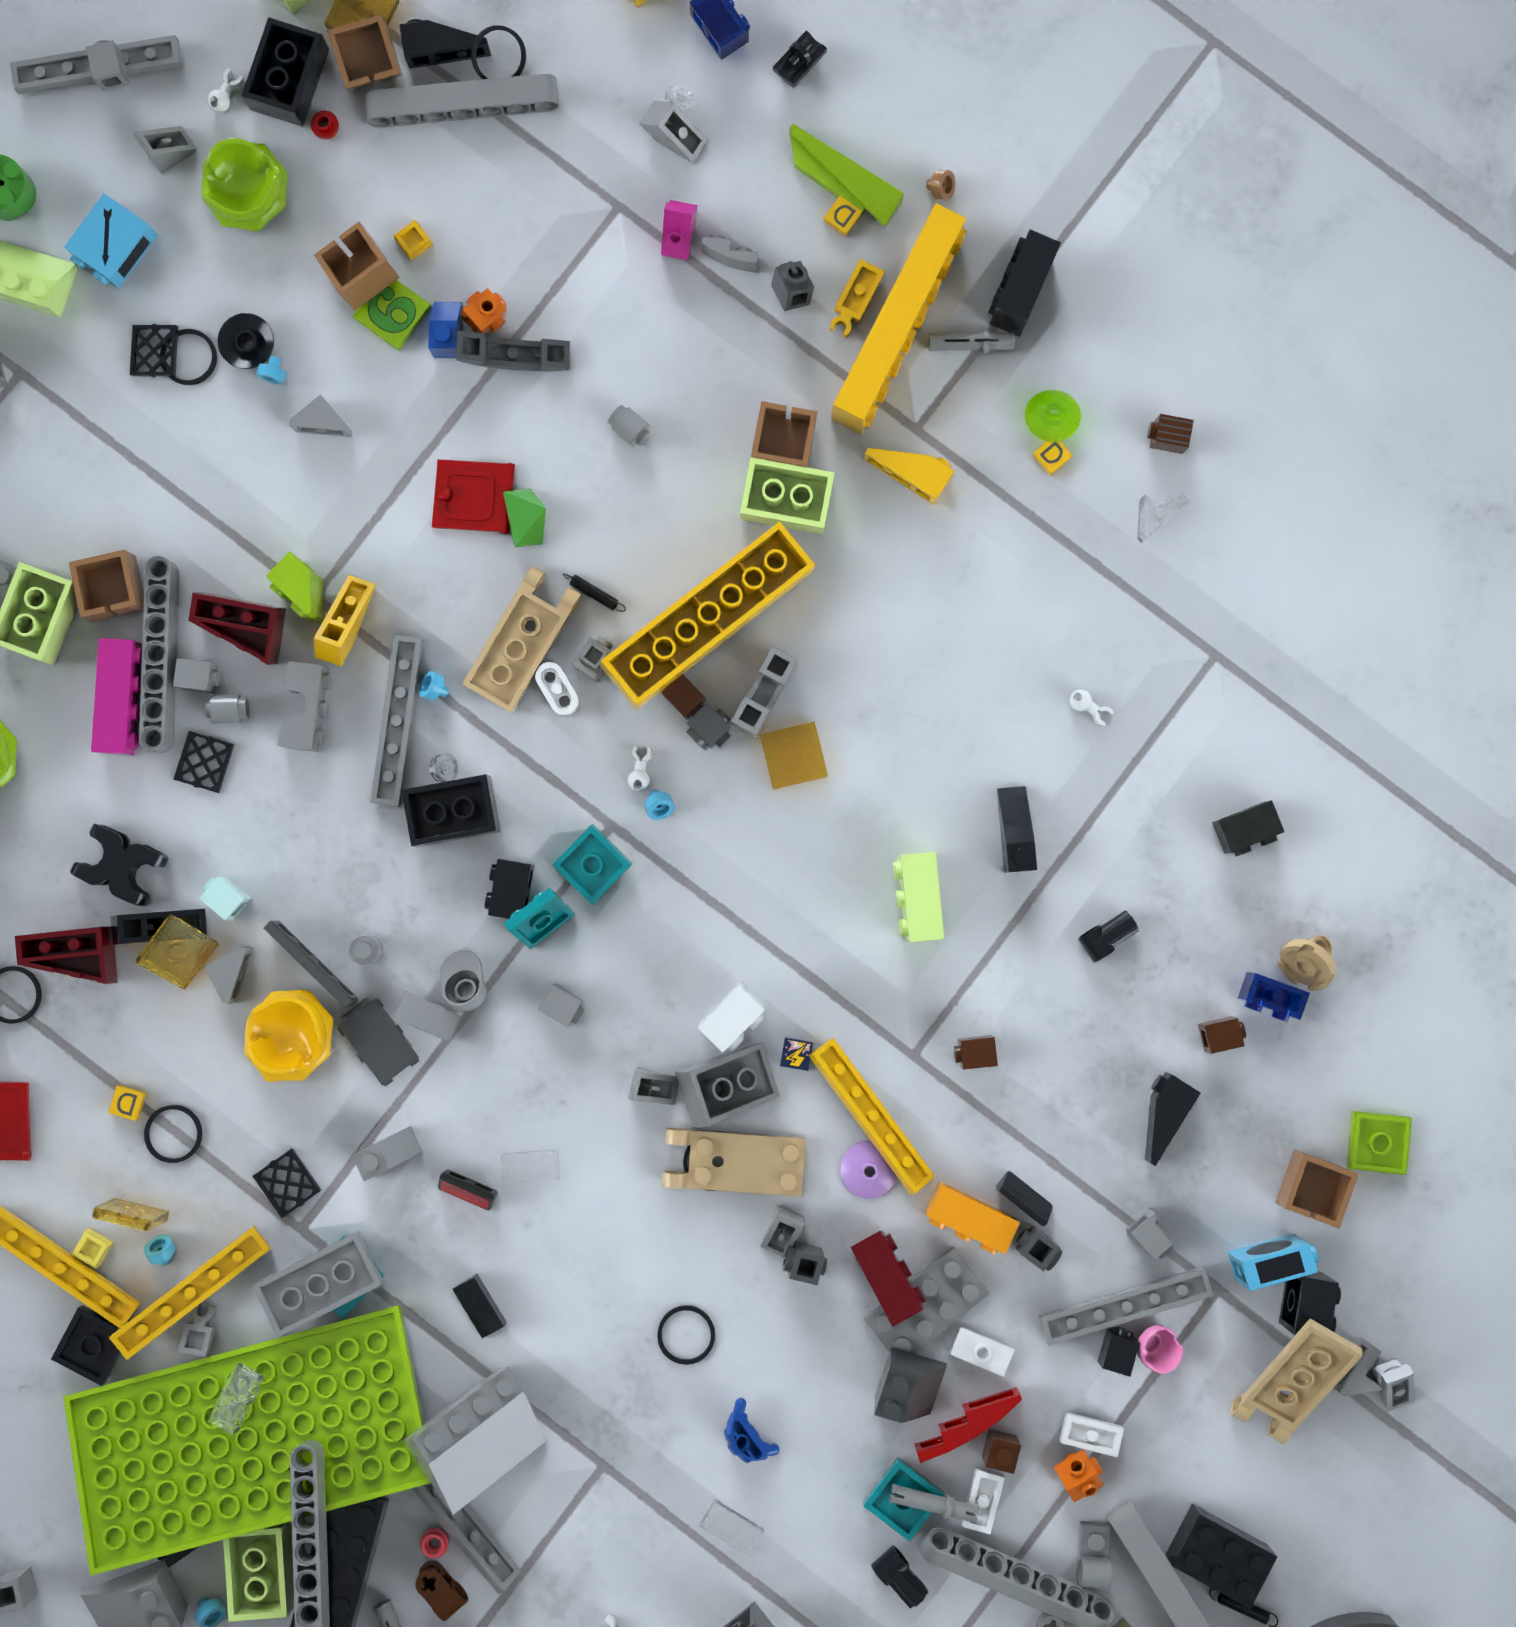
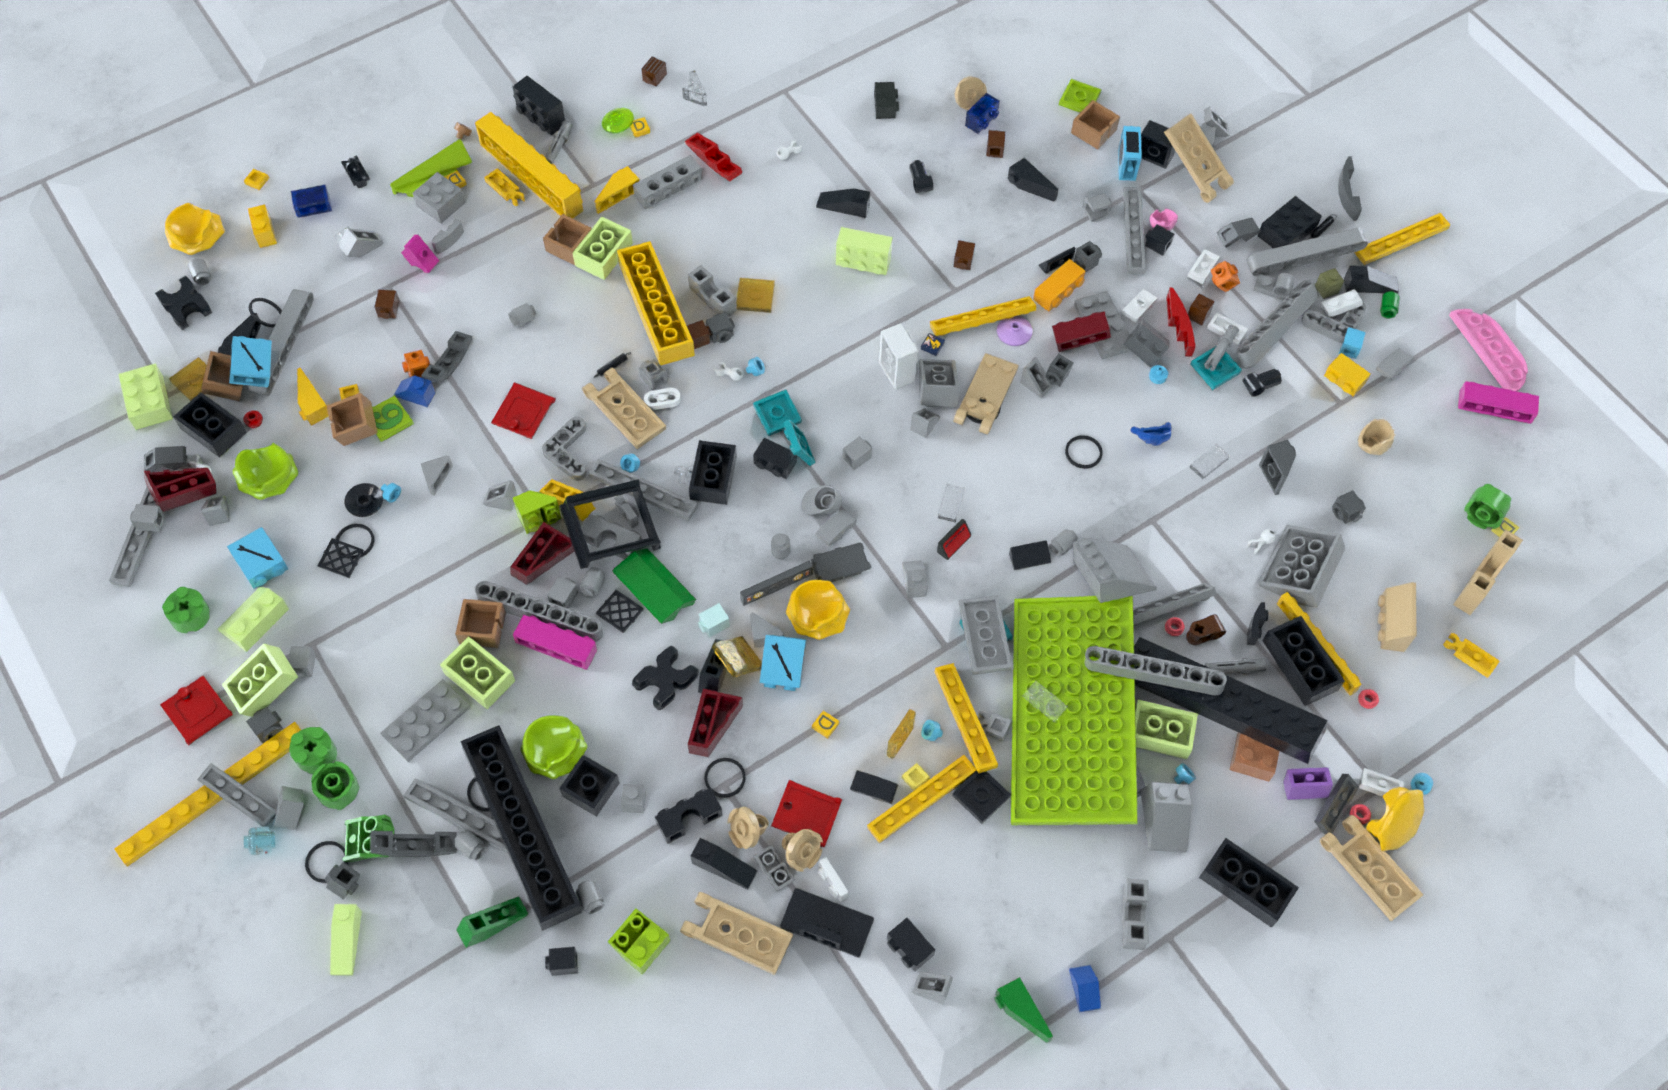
camera: 75 degrees left, 25 degrees down
(53, 1196) = (874, 786): none -> black slope
(147, 1138) = (858, 688): black piece -> none
(165, 79) = (179, 488): none -> dark red wedge
(186, 1017) = (782, 662): none -> medium azure brick
(217, 39) = (167, 457): none -> dark grey slope
(251, 795) = (653, 585): none -> green slope
(269, 1193) = (910, 633): black window -> none
(317, 527) = (501, 496): none -> light grey slope
(328, 667) = (575, 531): none -> black piece
(350, 717) = (629, 513): none -> light grey plate
(379, 188) = (311, 404): none -> yellow slope
(389, 78) = (250, 361): none -> medium azure brick
(421, 579) = (561, 446): none -> light grey beam
(513, 1350) = (1063, 542): none -> light grey brick
(525, 517) = (550, 382): bright green slope -> none
(577, 221) = (387, 304): none -> reddish brown brick
(792, 285) = (482, 210): dark grey brick -> none
(795, 208) = (439, 197): none -> light grey brick
(861, 1406) = (1158, 374): none -> medium azure tile
(924, 512) = (667, 181): none -> light grey brick
(1033, 594) = (710, 154): none -> red slope
(1180, 1475) = (1239, 229): none -> dark grey slope

